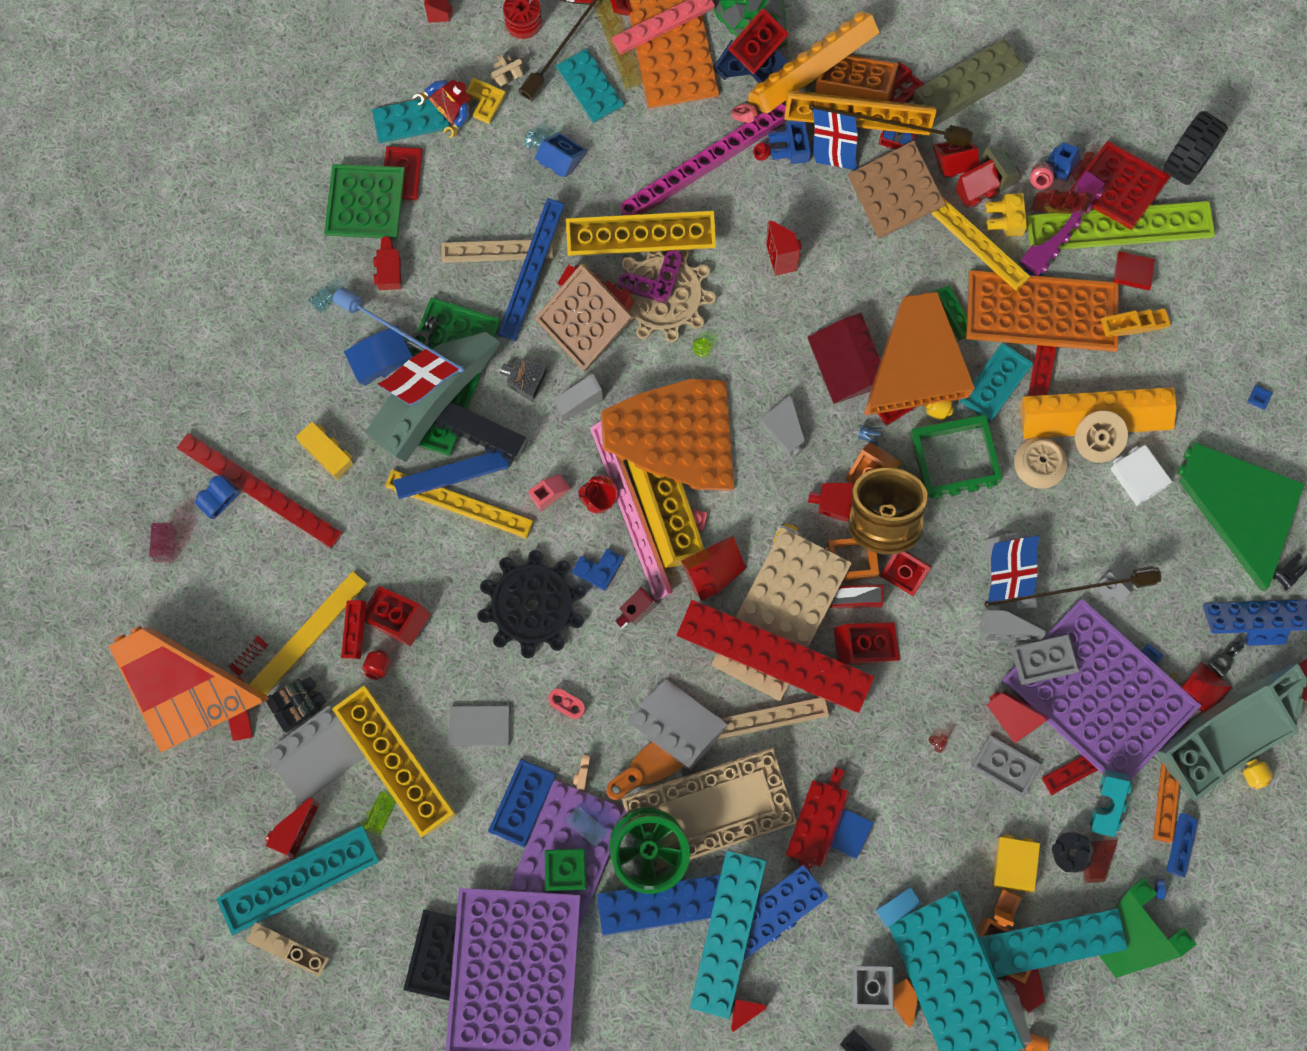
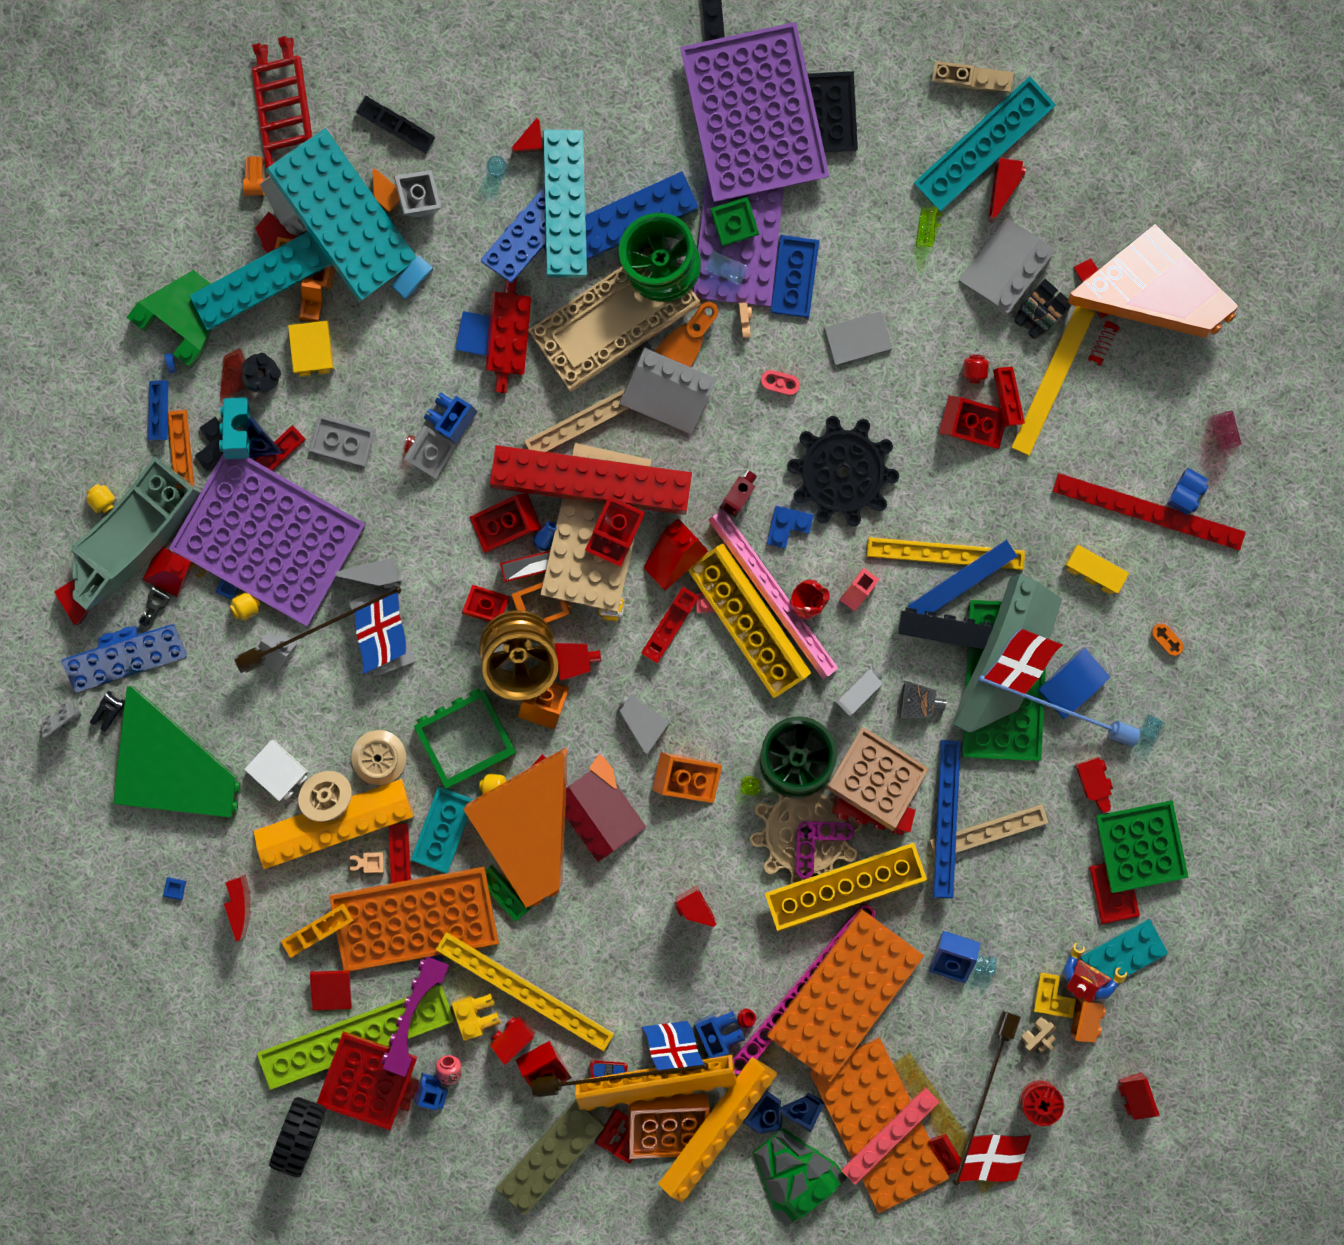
camera: 160 degrees right, 15 degrees up
(277, 374) = (1164, 642): none -> orange beam
(394, 762) = (928, 278): yellow slope -> none
(430, 324) = (1030, 730): pearl dark grey piece -> none
(463, 67) = (1087, 1020): none -> orange slope
(589, 85) = (947, 1045): teal plate -> none
(647, 325) = (802, 729): none -> dark green wheel
(667, 144) = (845, 995): none -> orange plate
(675, 433) = (750, 681): orange wing -> none
(736, 507) = (670, 624): none -> red slope
(744, 113) = (776, 1054): coral plate -> none
(757, 40) = (783, 1135): red slope -> none
(758, 368) = (686, 777): none -> orange slope
(765, 598) = (615, 531): none -> red slope
(786, 994) = (496, 170): none -> clear light blue wheel
(832, 395) = (603, 770): none -> orange sticker
(833, 618) = (544, 538): none -> blue cone
(864, 431) = (560, 738): flat silver piece -> none
(890, 753) = (454, 420): none -> blue brick
(896, 190) = (595, 1011): medium nougat plate -> none
(923, 729) = (429, 452): none -> light grey plate
(1006, 171) = (491, 1066): olive slope -> none
(1015, 715) = (344, 490): red slope -> none
(1044, 659) = (329, 553): light grey tile -> none
(1061, 202) = (421, 1038): clear red slope -> none
(1070, 371) = (372, 862): none -> light nougat plate
(1087, 787) = (260, 442): none -> dark blue slope
(1138, 632) = (244, 606): none -> yellow head
(1140, 787) = (211, 454): none -> black plate
(1204, 363) = (239, 906): none -> red slope

